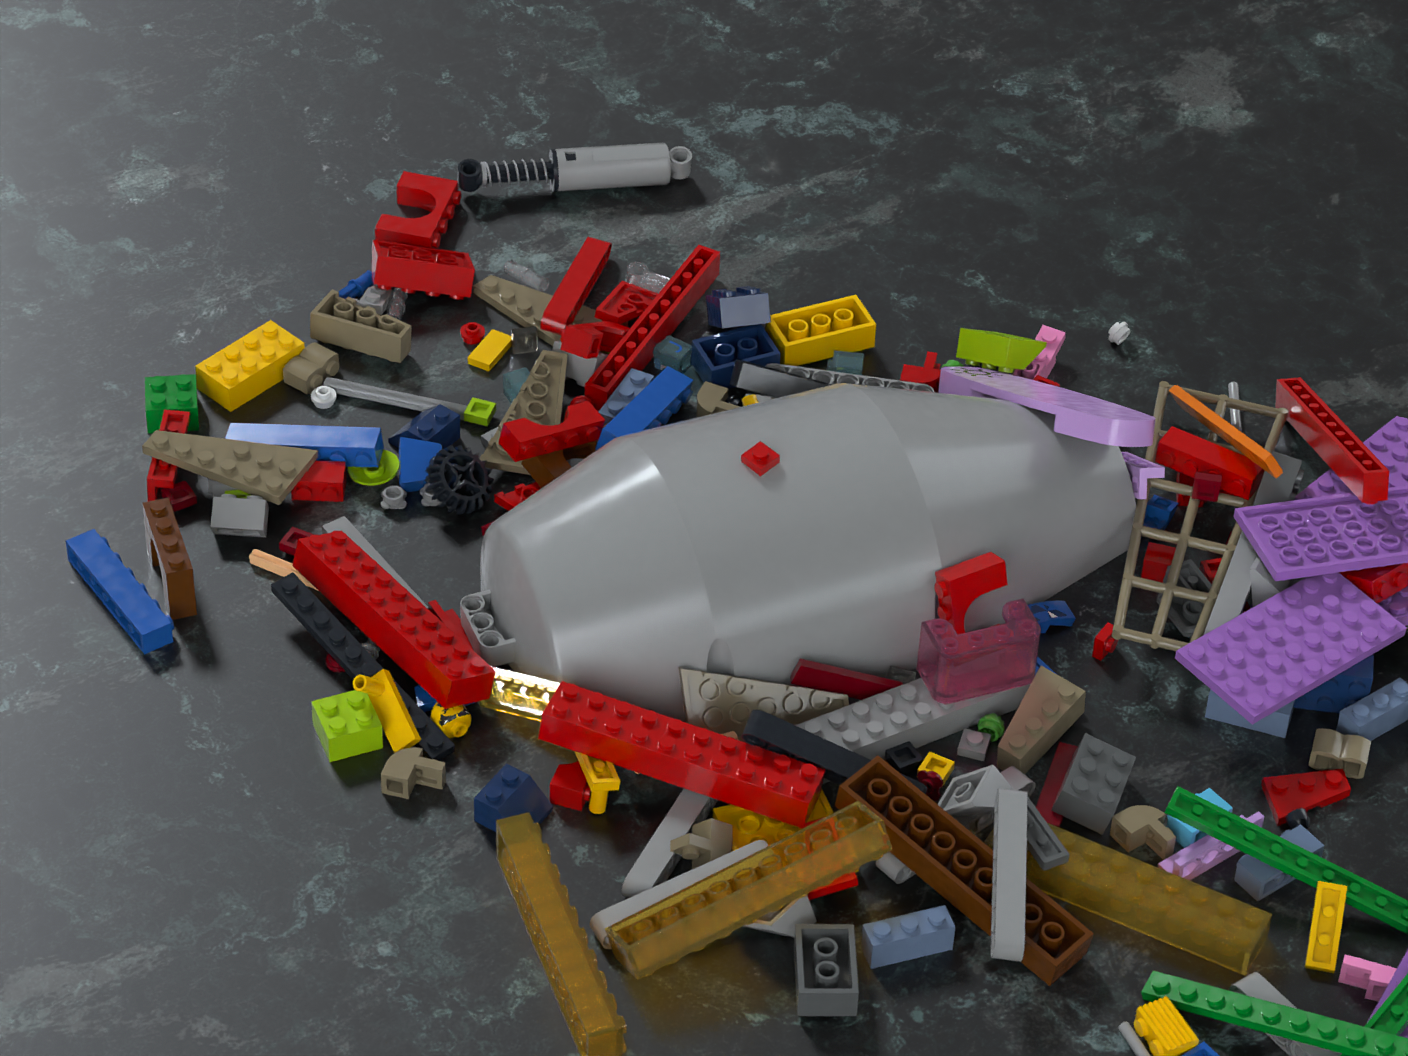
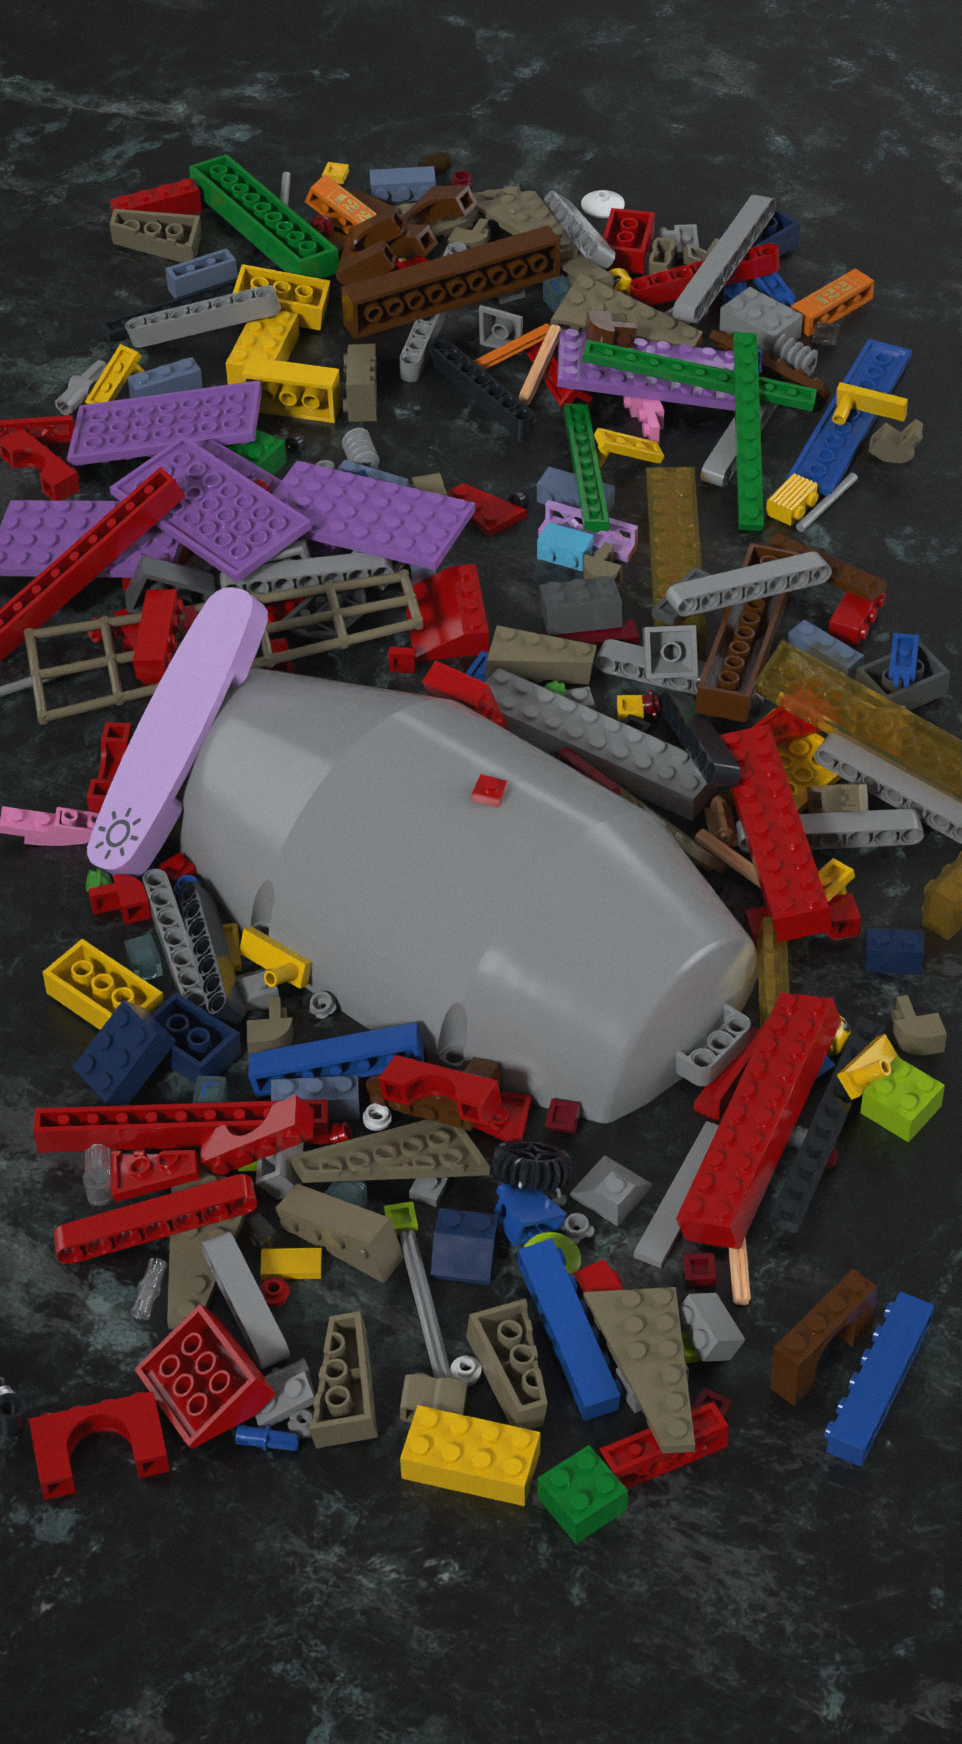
camera: 115 degrees left, 5 degrees up
(298, 403) = (508, 1358): none -> dark tan wedge
(410, 529) = (611, 1190): none -> light grey slope
(471, 306) = (245, 1300): none -> light grey beam
(482, 370) = (343, 1230): none -> dark tan wedge
(831, 952) = (903, 658): none -> blue hinge
(958, 997) = (853, 617): none -> red brick
(979, 660) = (527, 664): clear pink windscreen -> none
(997, 349) = (57, 842): lime slope -> none
(1031, 990) = (843, 575): none -> reddish brown plate
(1148, 702) = (451, 615): none -> red slope
(1226, 431) = (114, 627): orange tile -> none

